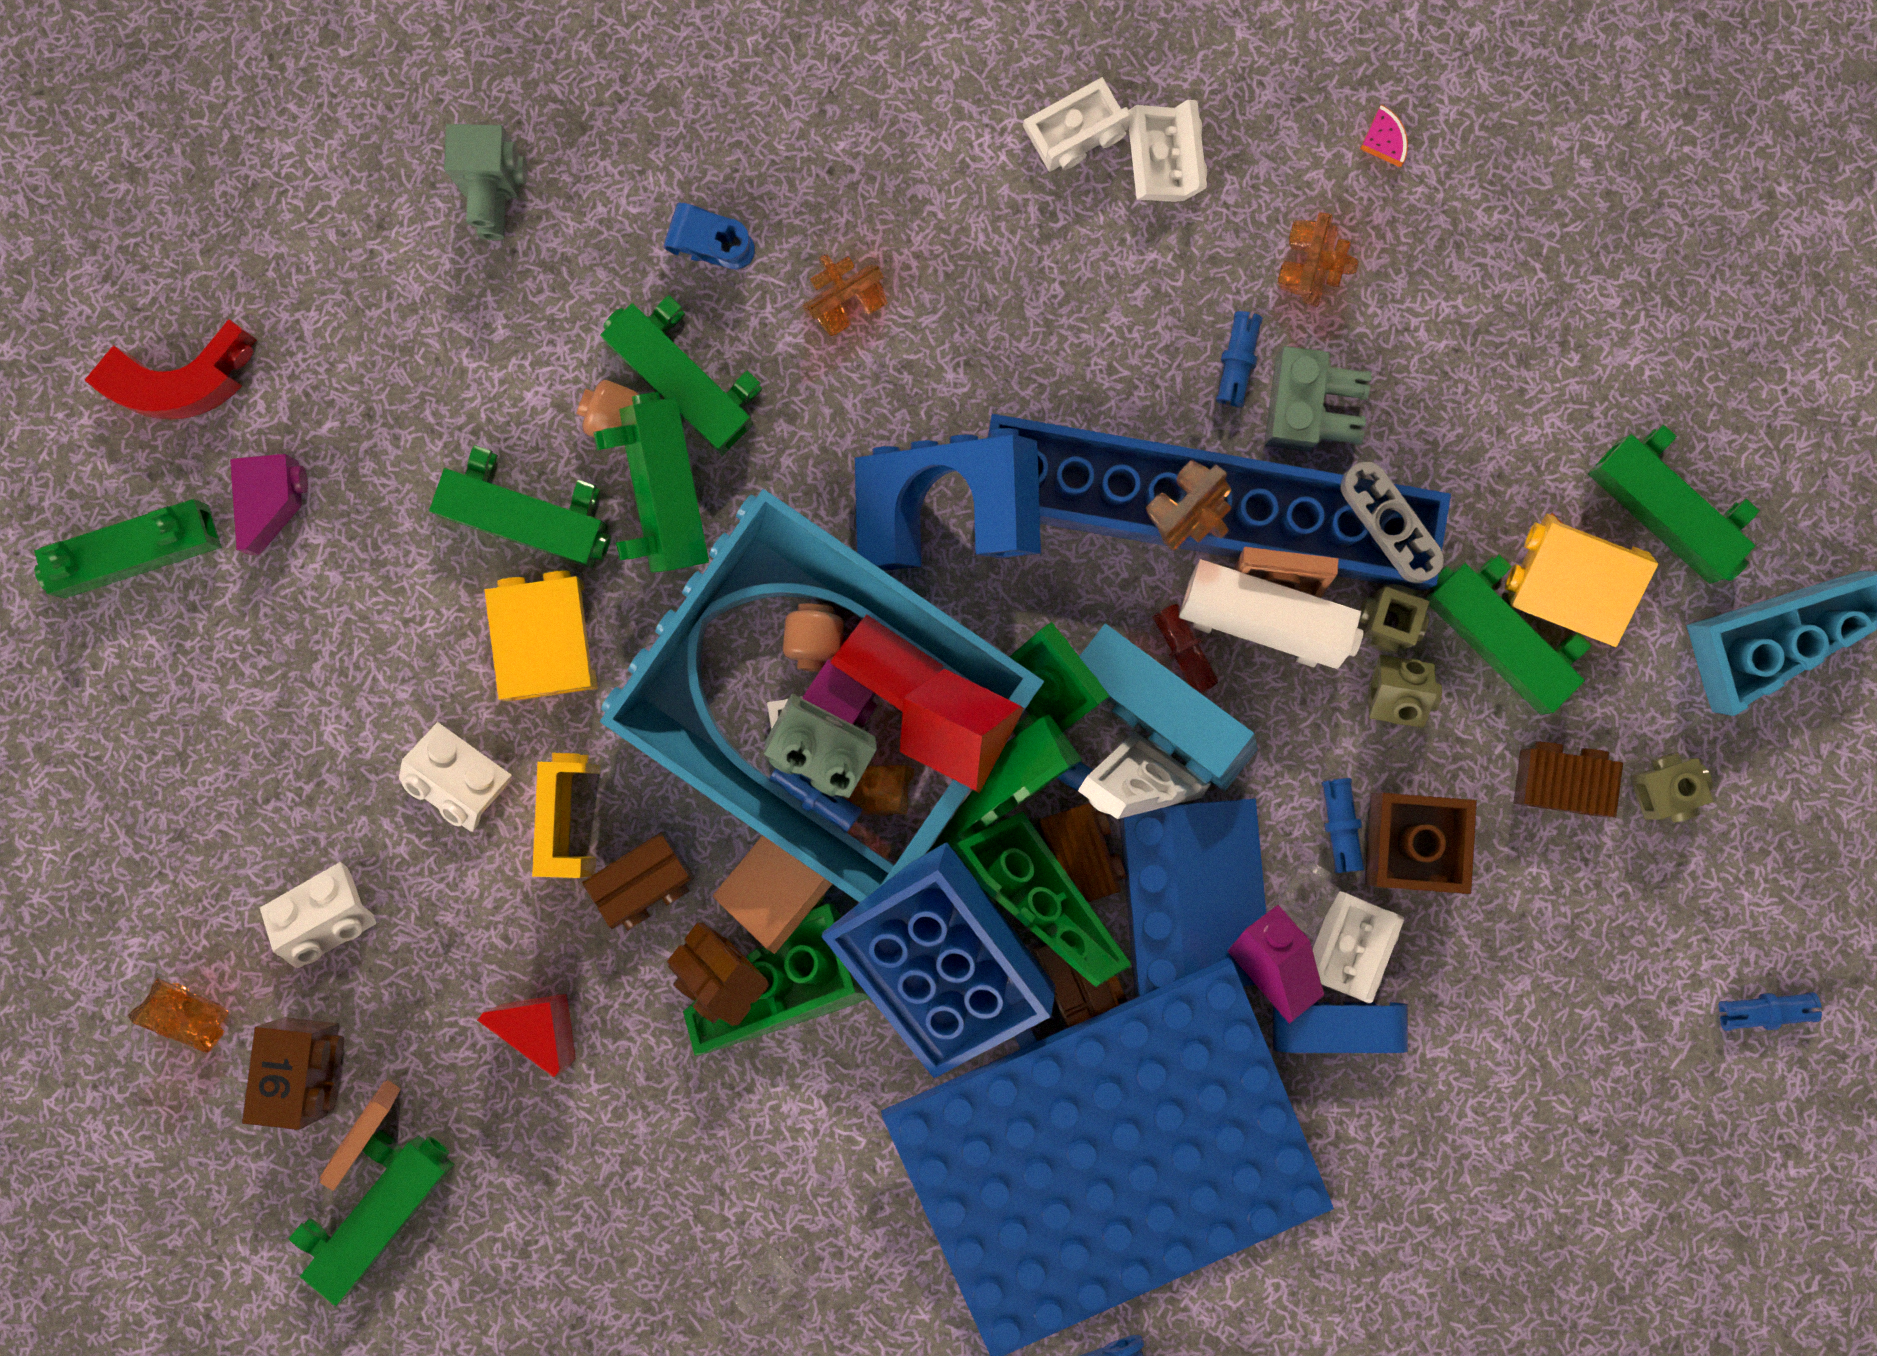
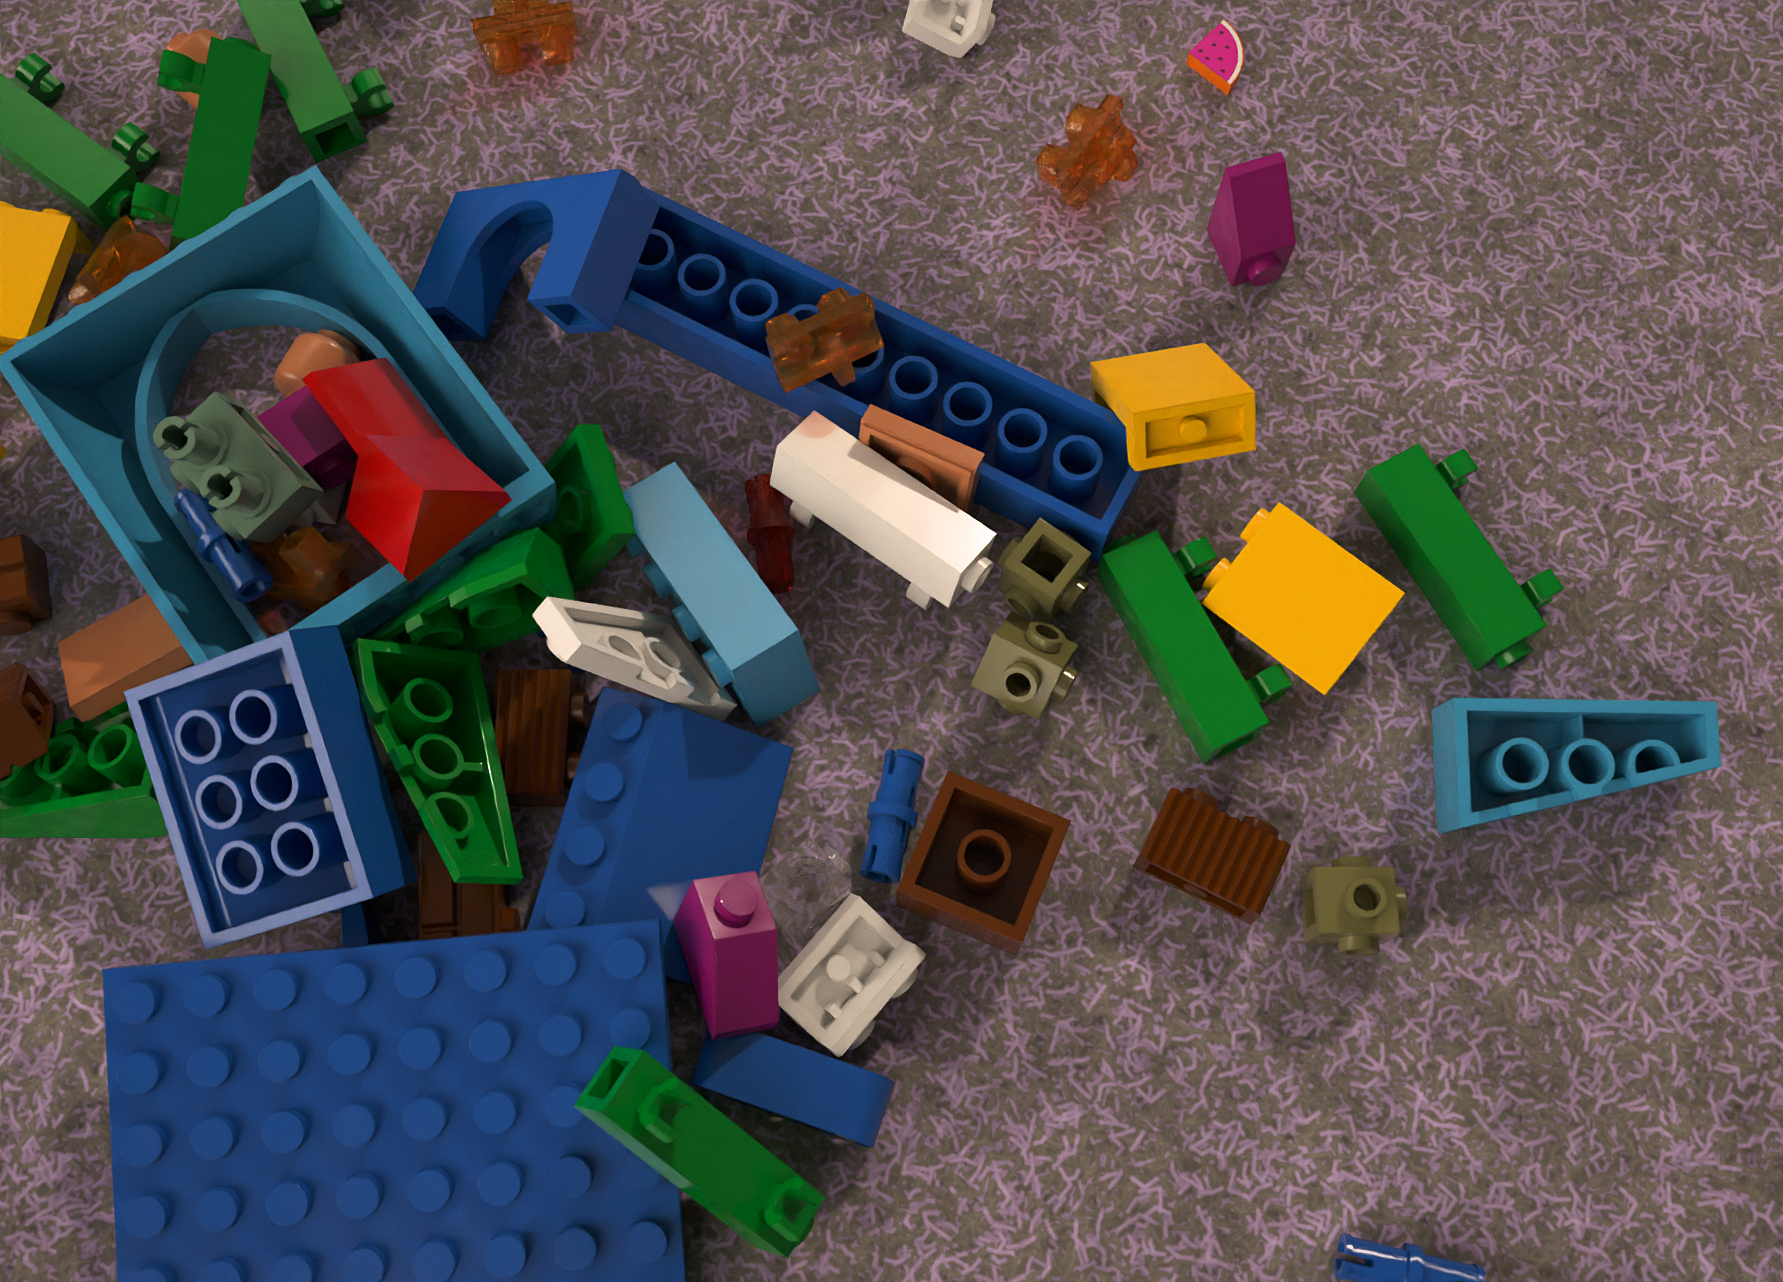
camera: 20 degrees right, 15 degrees down
(634, 602) = (115, 258): none -> clear orange hips
(1239, 359) = (961, 233): blue pin -> none
(1297, 398) = (1014, 283): sand green brick -> none
(1312, 1097) = (700, 1150): none -> green brick
(1401, 558) = (1079, 413): light grey beam -> none
(1452, 463) = (1177, 405): none -> yellow panel
(1462, 290) = (1253, 221): none -> magenta slope

